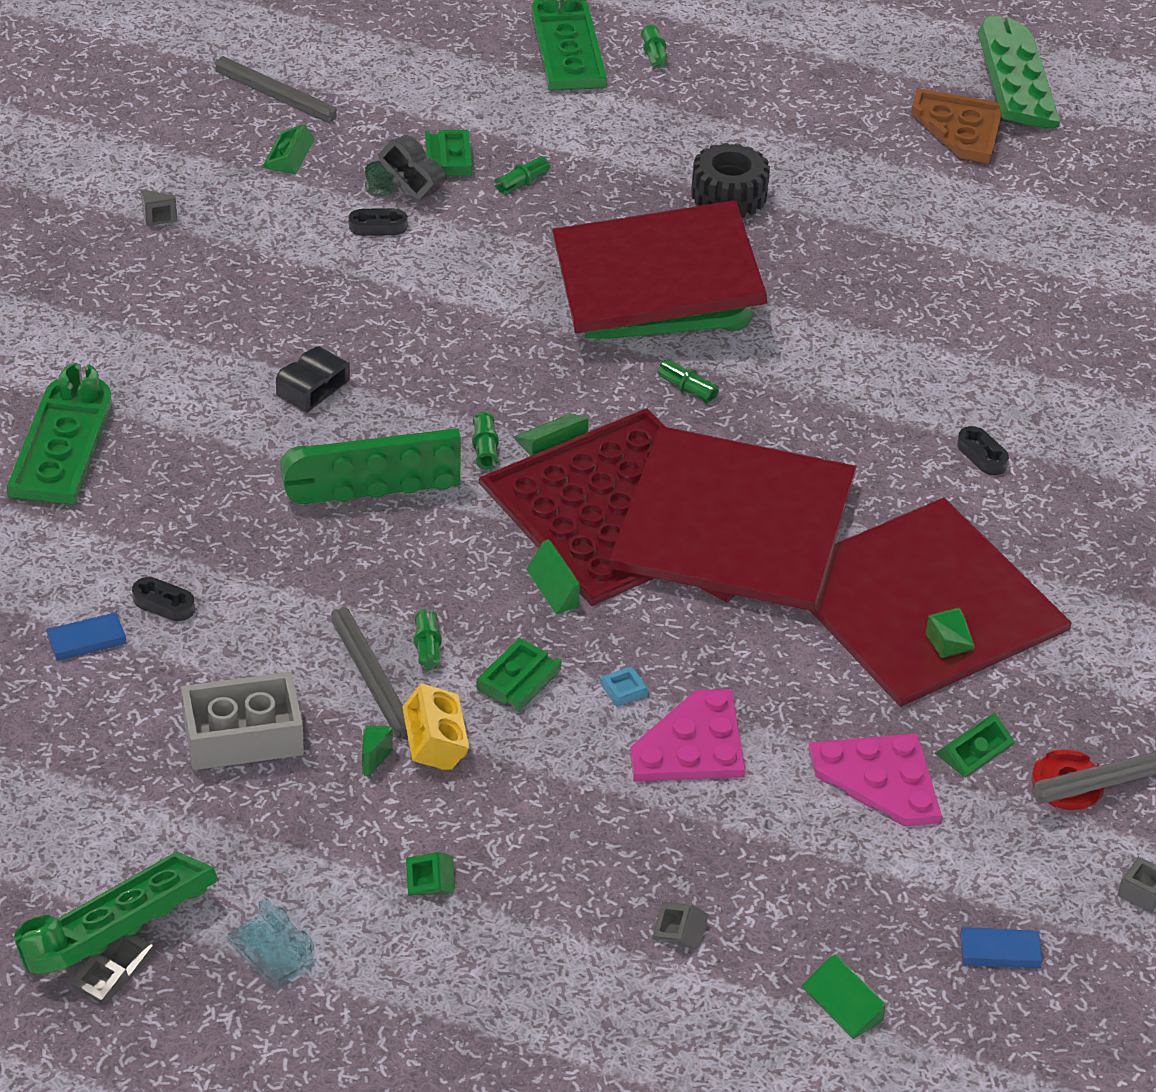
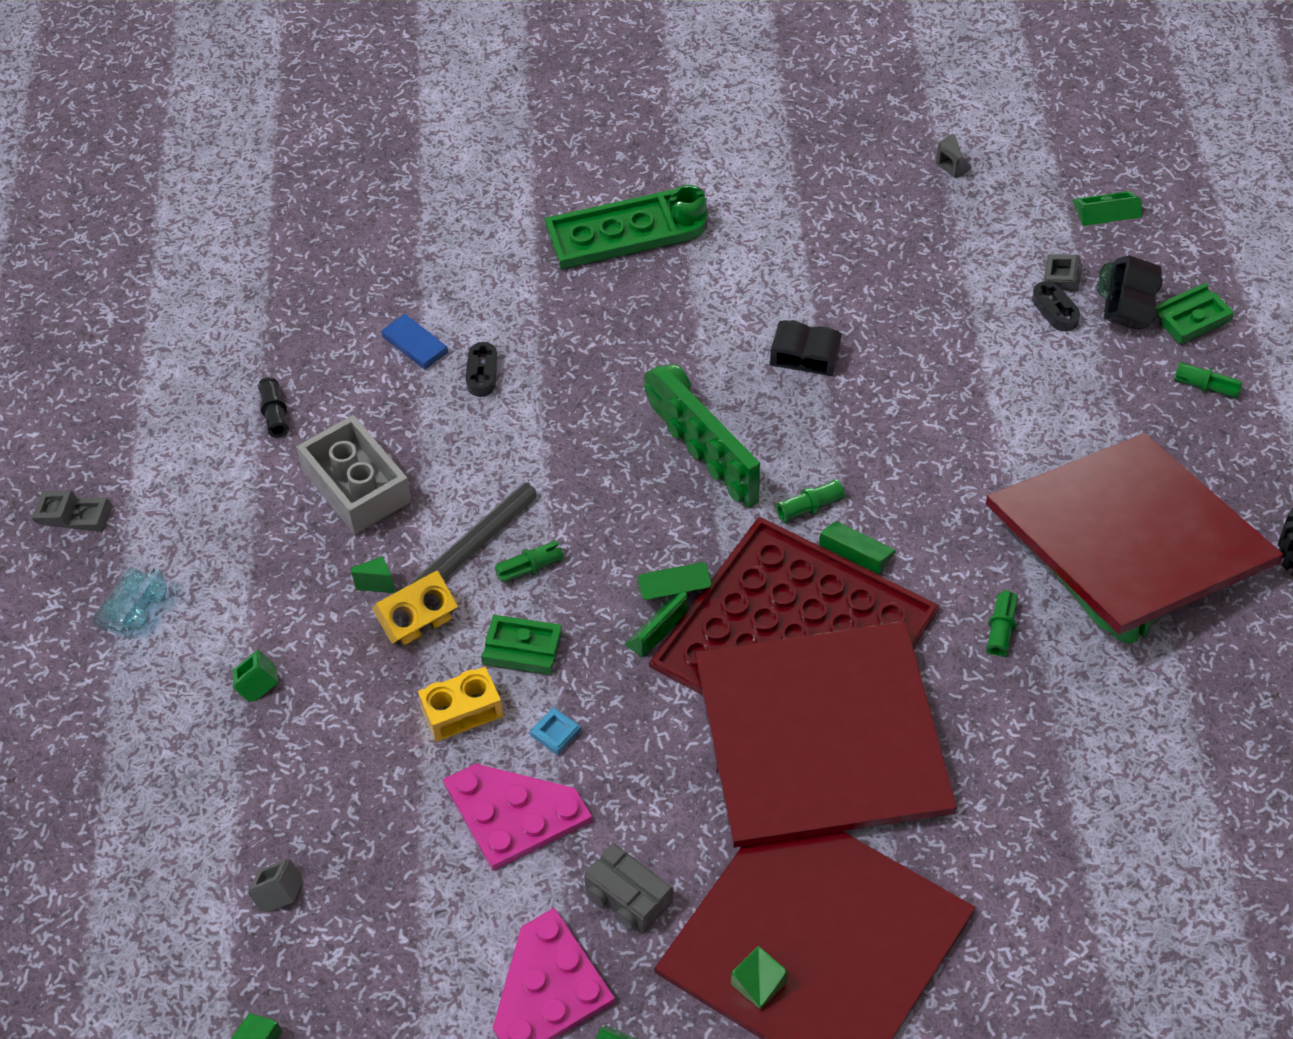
camera: 70 degrees right, 10 degrees up
(55, 944) = (110, 483): green plate -> none
(94, 764) = (273, 407): none -> black pin
(276, 89) = (1184, 163): dark grey axle -> none
(345, 199) = (1064, 270): none -> dark grey slope
(519, 551) = (673, 581): none -> green slope
(561, 733) = (463, 710): none -> yellow brick
(819, 687) = (627, 888): none -> dark grey brick
(981, 451) = (1083, 924): black beam -> none

